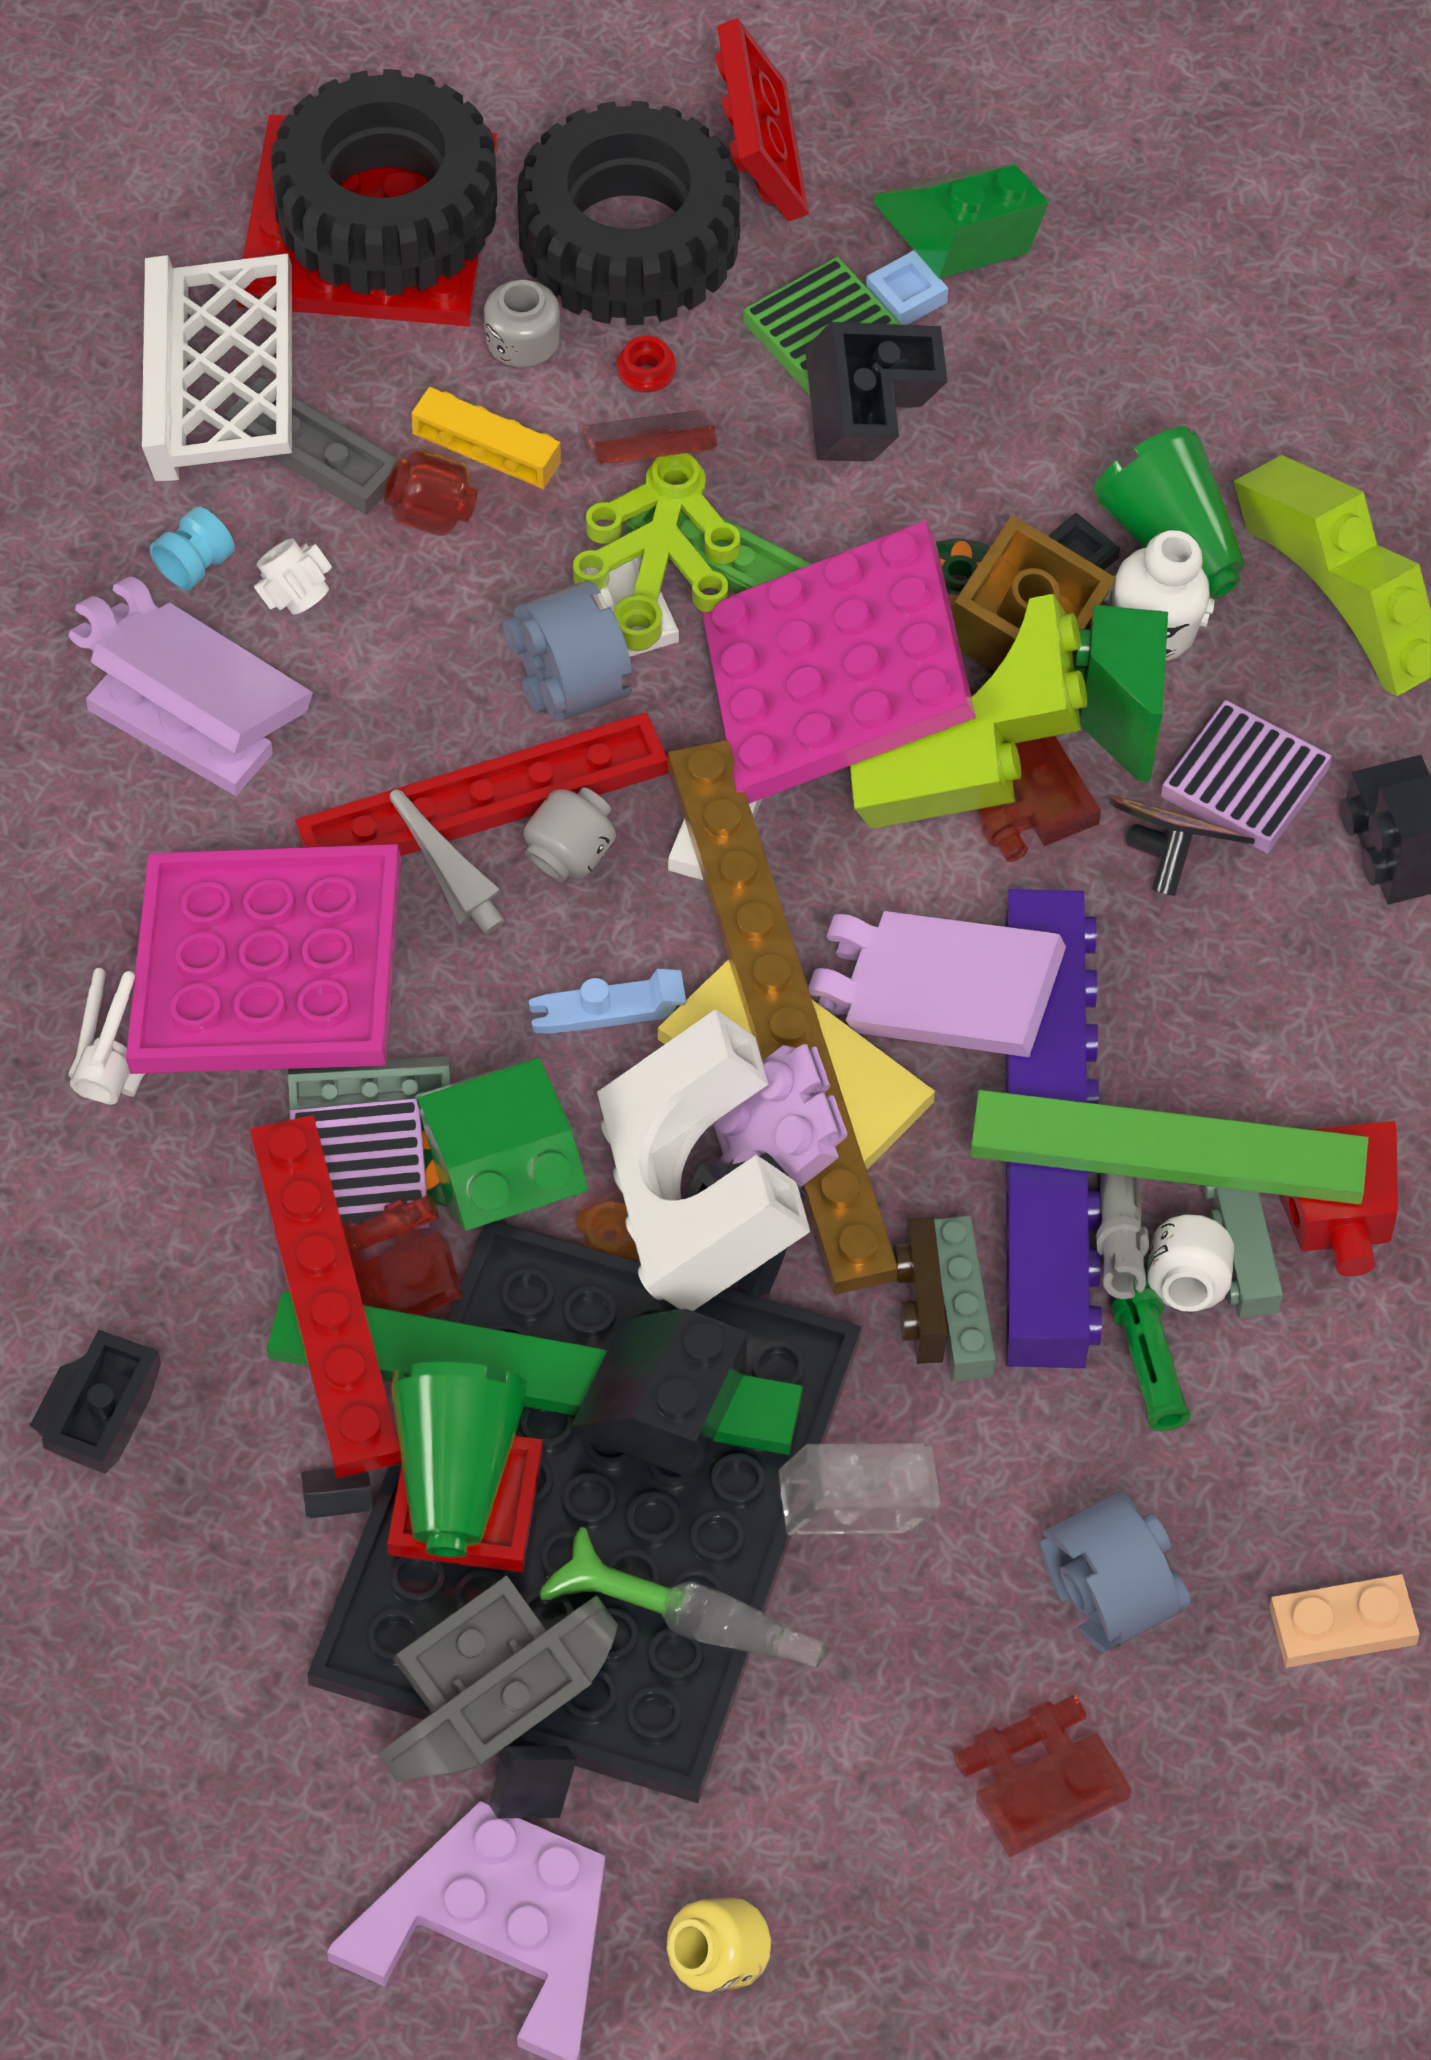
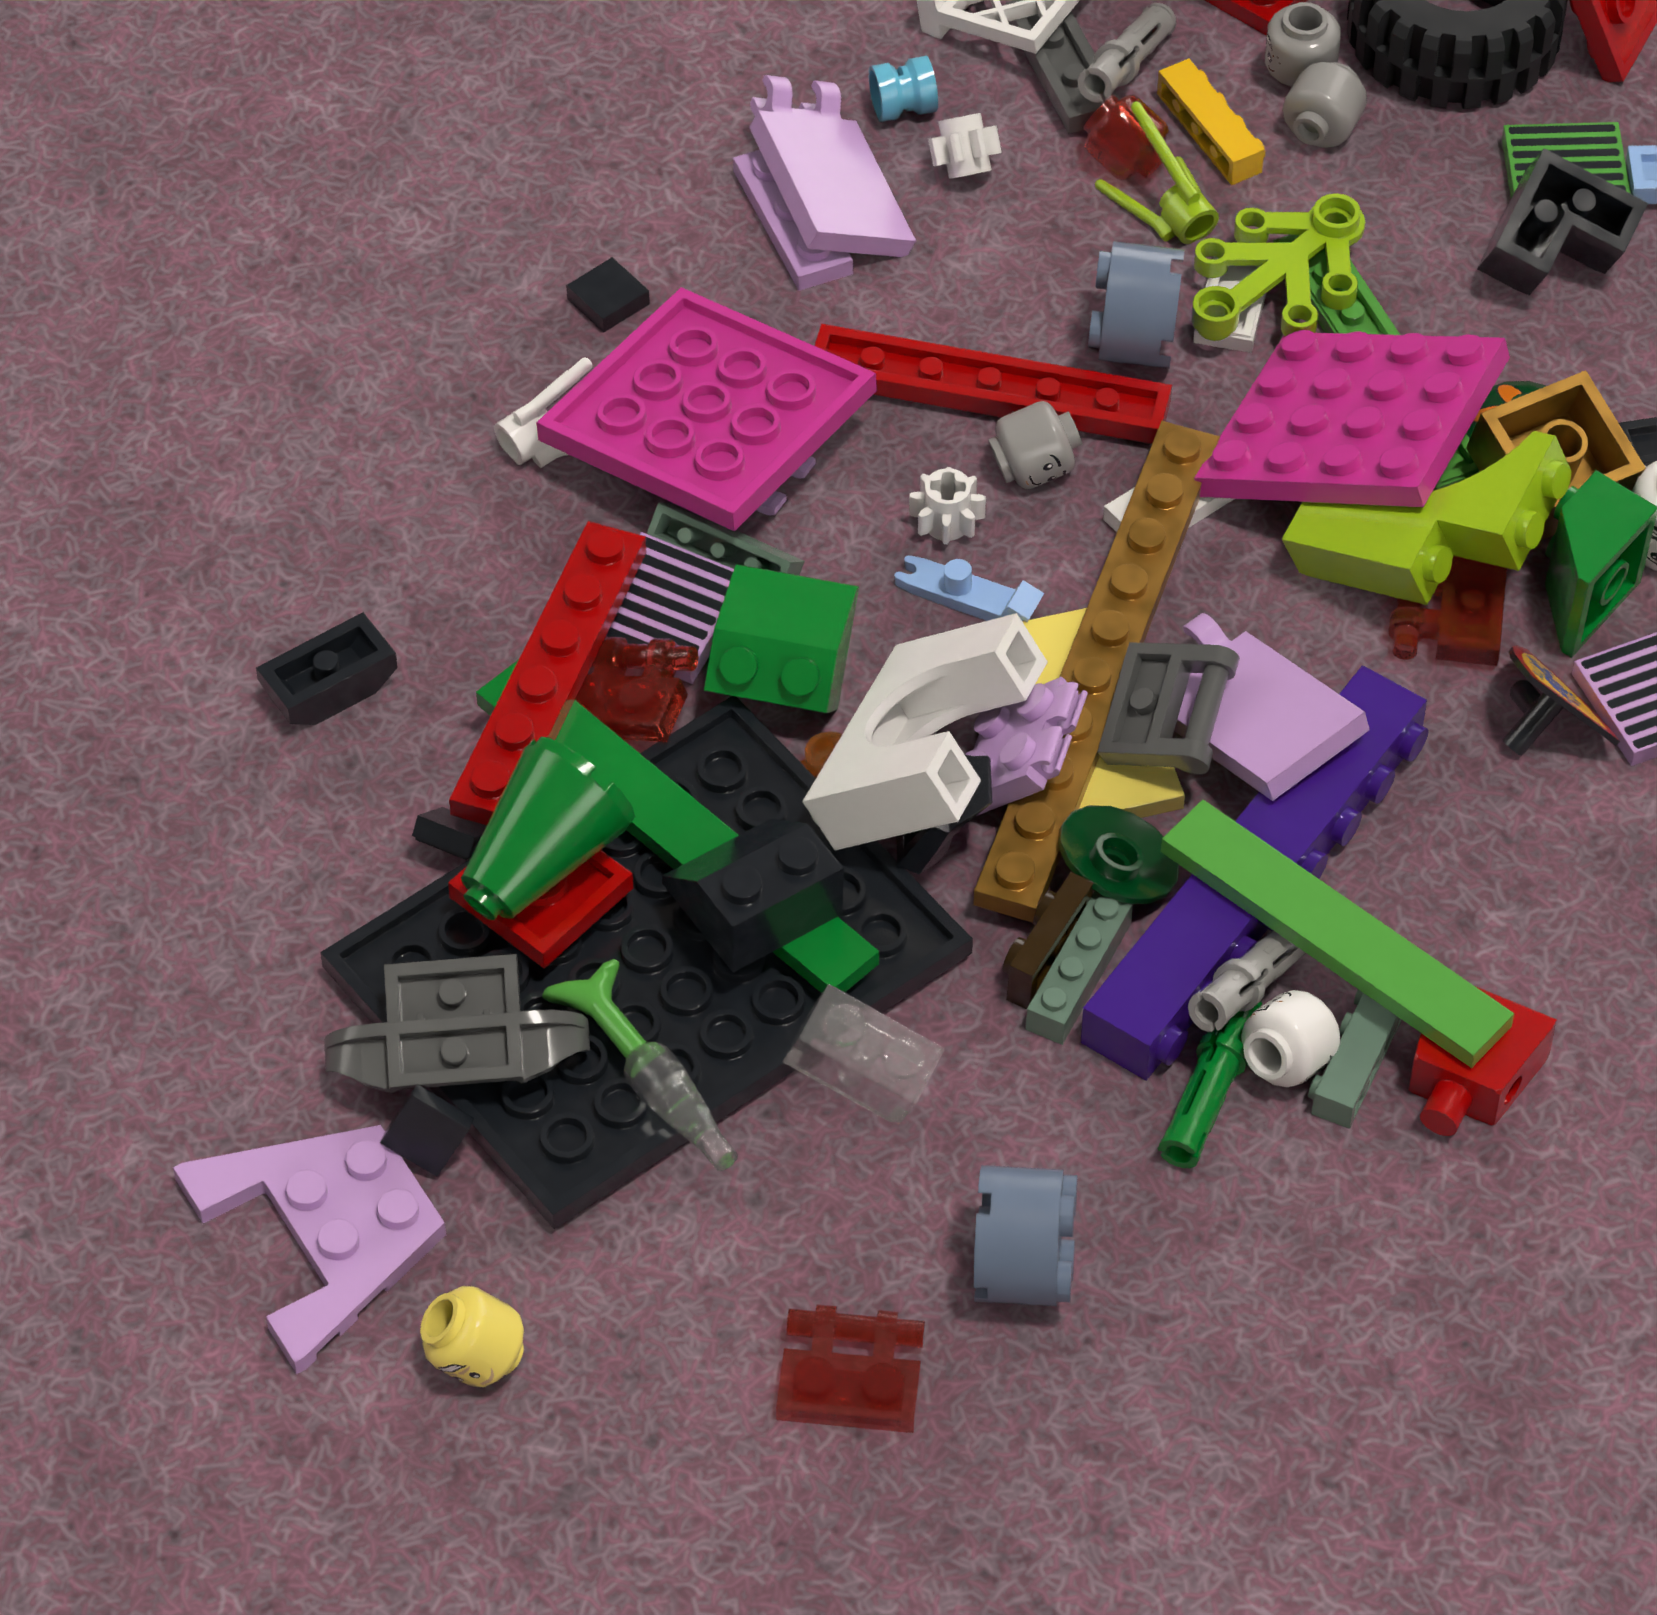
camera: 35 degrees right, 5 degrees down
(69, 894) = (608, 294): none -> black tile
(375, 421) = (1120, 58): none -> light grey pin
(462, 883) = (919, 440): light grey piece -> none
(529, 534) = (1183, 205): none -> lime plant
(535, 933) = (947, 505): none -> white gear
(581, 368) = (1327, 102): none -> light grey head
(649, 437) = (1337, 178): clear red tile -> none
(651, 352) = (1389, 129): red plate -> none
(859, 1025) = (1150, 700): none -> dark grey plate
(925, 1177) = (1117, 854): none -> dark green dish
(1344, 1620) = (1207, 1398): light nougat plate -> none

